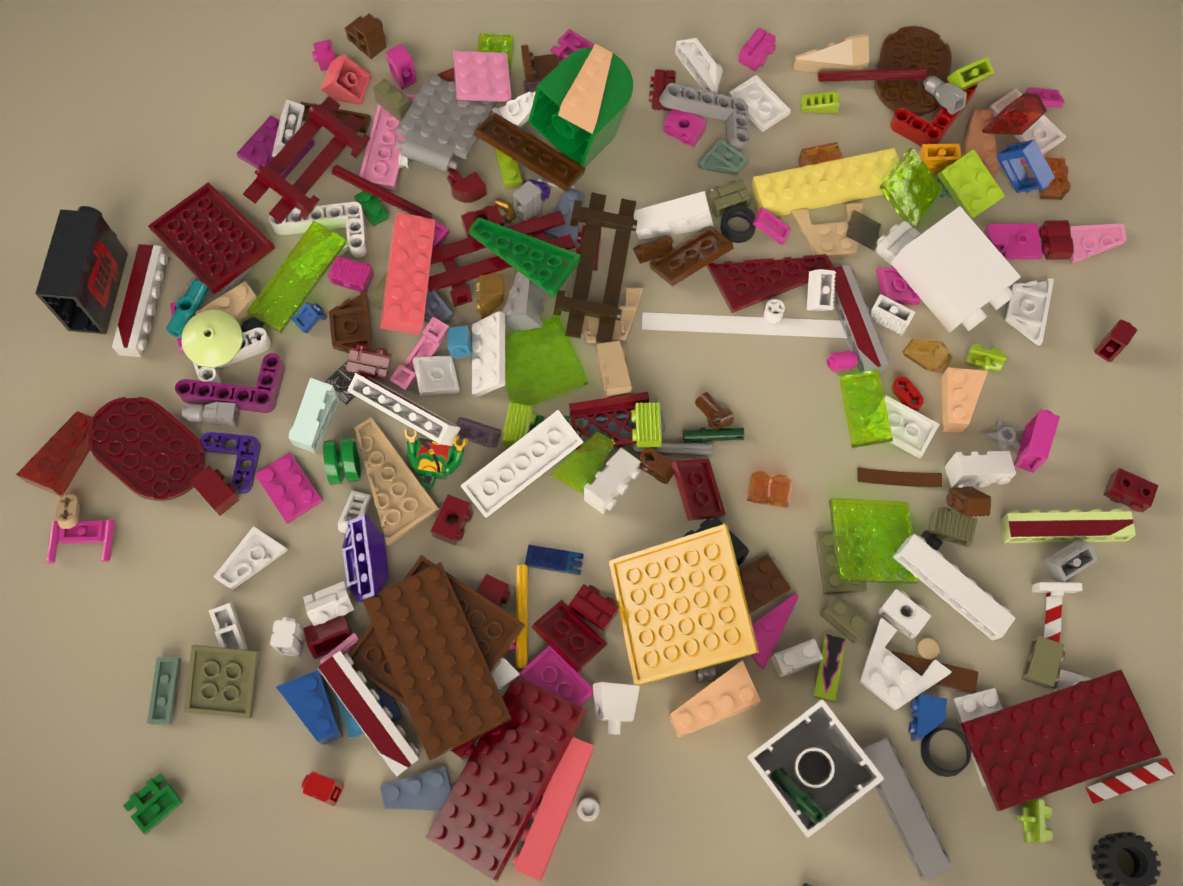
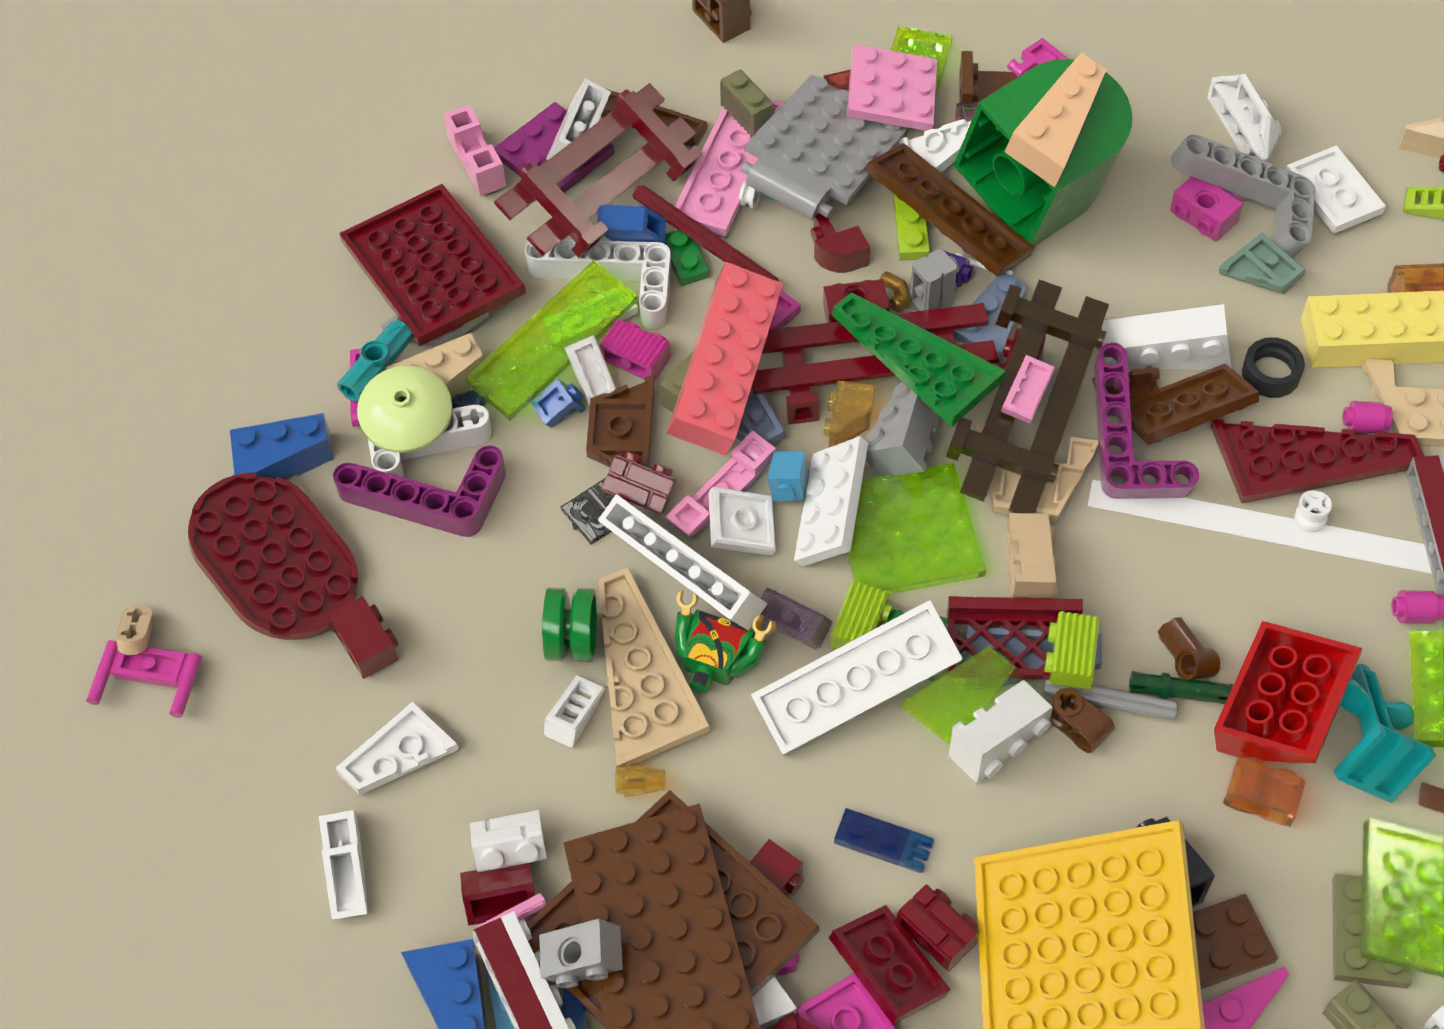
camera: 15 degrees right, 10 degrees down
(60, 457) = (140, 548): clear red wedge -> none
(82, 271) = (231, 280): black brick -> none
(138, 376) = (282, 447): none -> blue wedge
(140, 301) = (306, 340): brick -> none
(164, 691) = (224, 930): sand green plate -> none
(215, 413) = (384, 522): light grey piece -> none
(221, 681) = (317, 930): olive plate -> none
(223, 156) = (476, 157): none -> bright pink arch
(239, 450) = (413, 584): dark purple beam -> none
(287, 637) = (434, 880): white brick -> none
(288, 487) = (478, 654): dark pink plate -> none
(314, 415) = (539, 549): light aqua wedge -> none
(323, 54) = (653, 26): dark pink brick -> none
(324, 291) = (590, 367): none -> white plate
(334, 192) = (632, 223): none -> blue slope
(346, 81) = (679, 67): coral slope -> none
(364, 558) = (577, 780): dark purple wedge -> none
(385, 669) = (580, 953): none -> light grey brick
(401, 66) = (769, 57): dark pink brick -> none
(401, 549) = (638, 780): none -> clear yellow cone
(452, 508) = (730, 729): dark red brick -> none
(522, 615) = (817, 912): yellow axle -> none
(595, 264) = (1028, 389): none -> bright pink plate
(656, 284) = (1121, 436): none -> magenta beam
(658, 83) = (1172, 136): dark red brick -> none
(698, 489) = (1142, 768): dark red plate -> none
(727, 196) = (1262, 321): olive brick -> none
(757, 49) = (1343, 108): dark pink brick -> none
(771, 226) = (1328, 377): dark pink plate -> none
(774, 431) = (1285, 696): none -> red slope
(797, 247) = (1367, 417): none -> dark pink brick
(821, 290) = (1397, 488): white brick -> none
(835, 459) = (1384, 758): none -> teal piece

